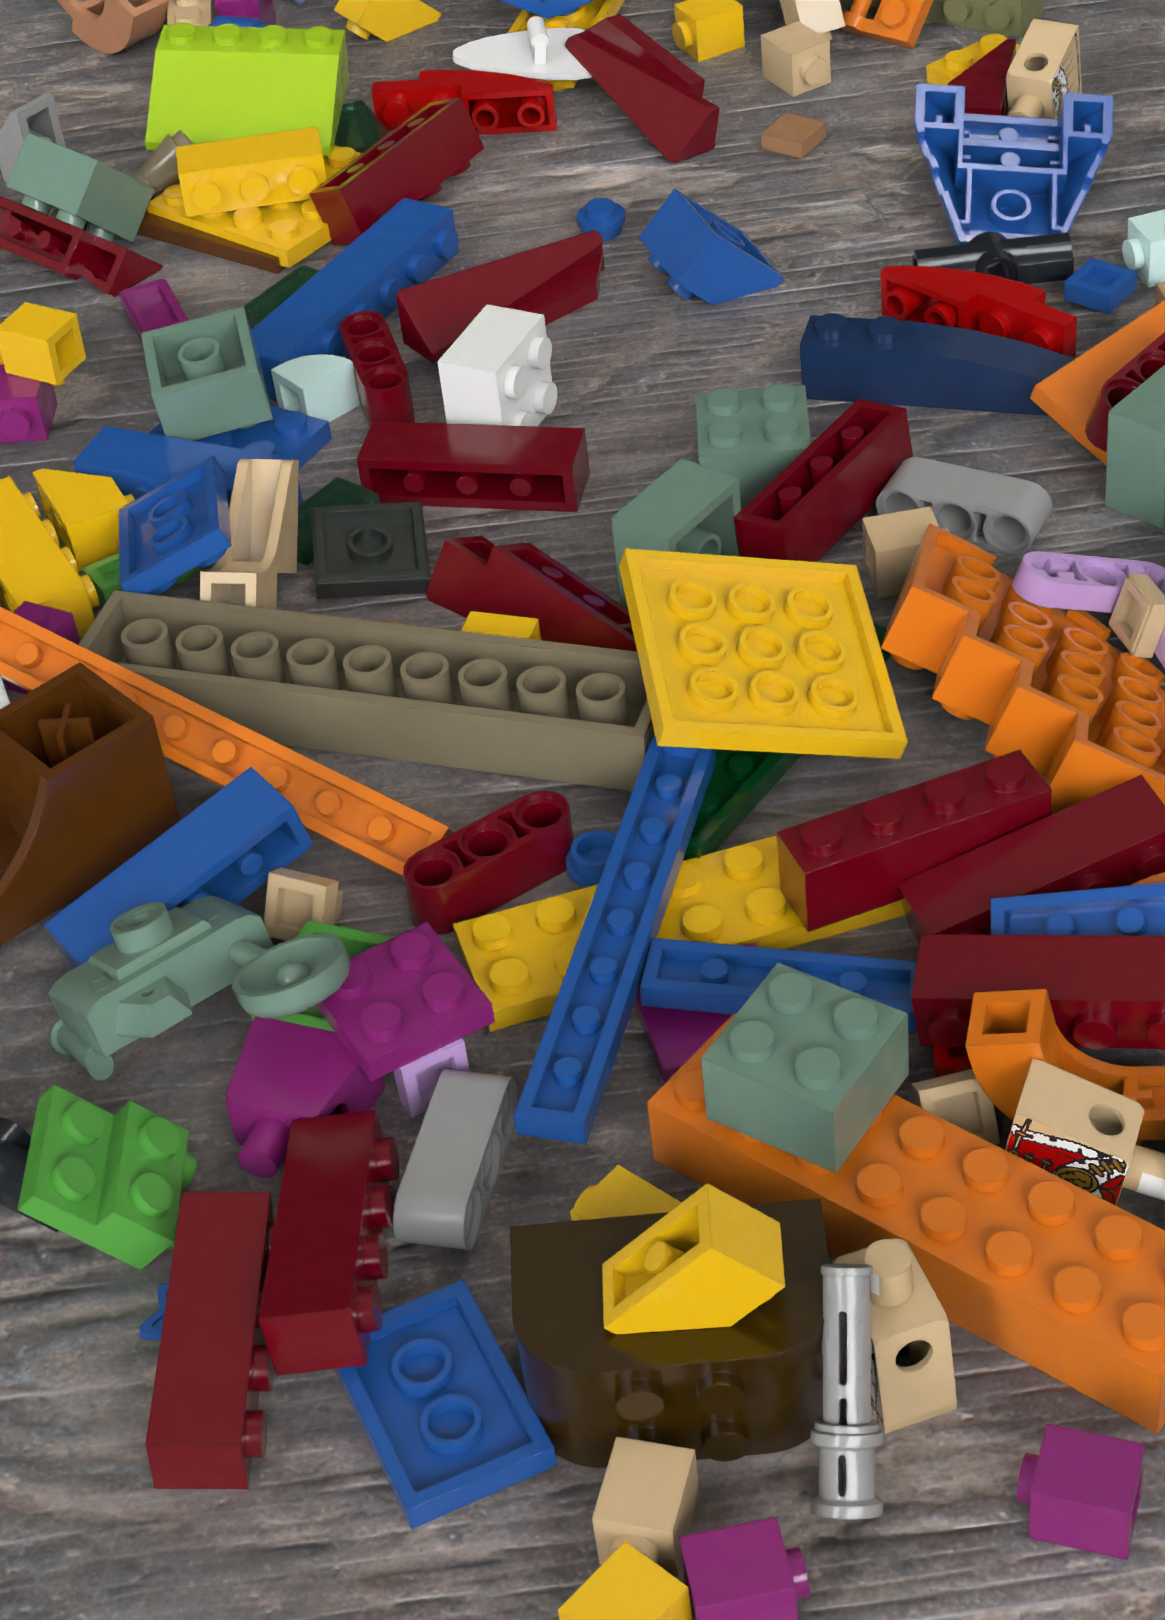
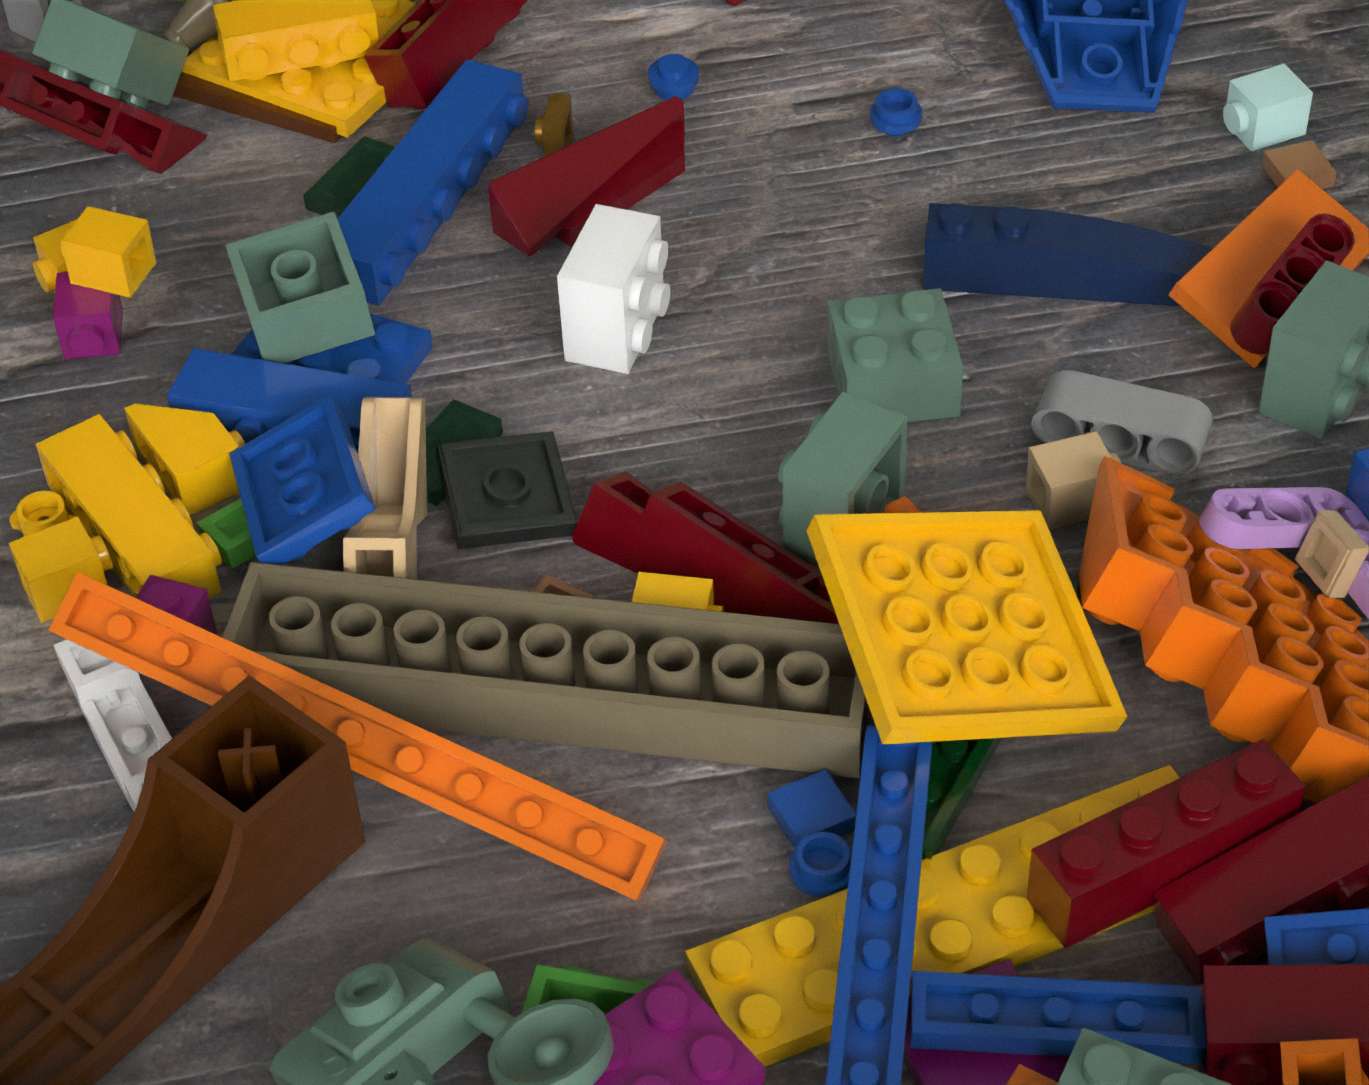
camera: 10 degrees left, 5 degrees up
(151, 306) = (213, 199): magenta tile -> none
(213, 851) = (409, 892): blue brick -> none
(299, 897) = (517, 938): tan tile -> none
(316, 386) = (410, 289): light aqua brick -> none
(377, 367) = (473, 270): dark red beam -> none
(476, 465) = (600, 384): dark red brick -> none
(479, 248) = (555, 127): none -> pearl gold plate
(489, 861) = (745, 850): dark red beam -> none
(597, 809) = (811, 807): none -> blue tile
(705, 253) = (794, 120): blue slope -> none
(805, 249) = (896, 112): none -> blue plate
(826, 485) = (980, 412): dark red brick -> none
(978, 304) = (1090, 182): red slope -> none
(1020, 259) = (1094, 130): black piece -> none
(1100, 285) = (1208, 154): blue plate -> none

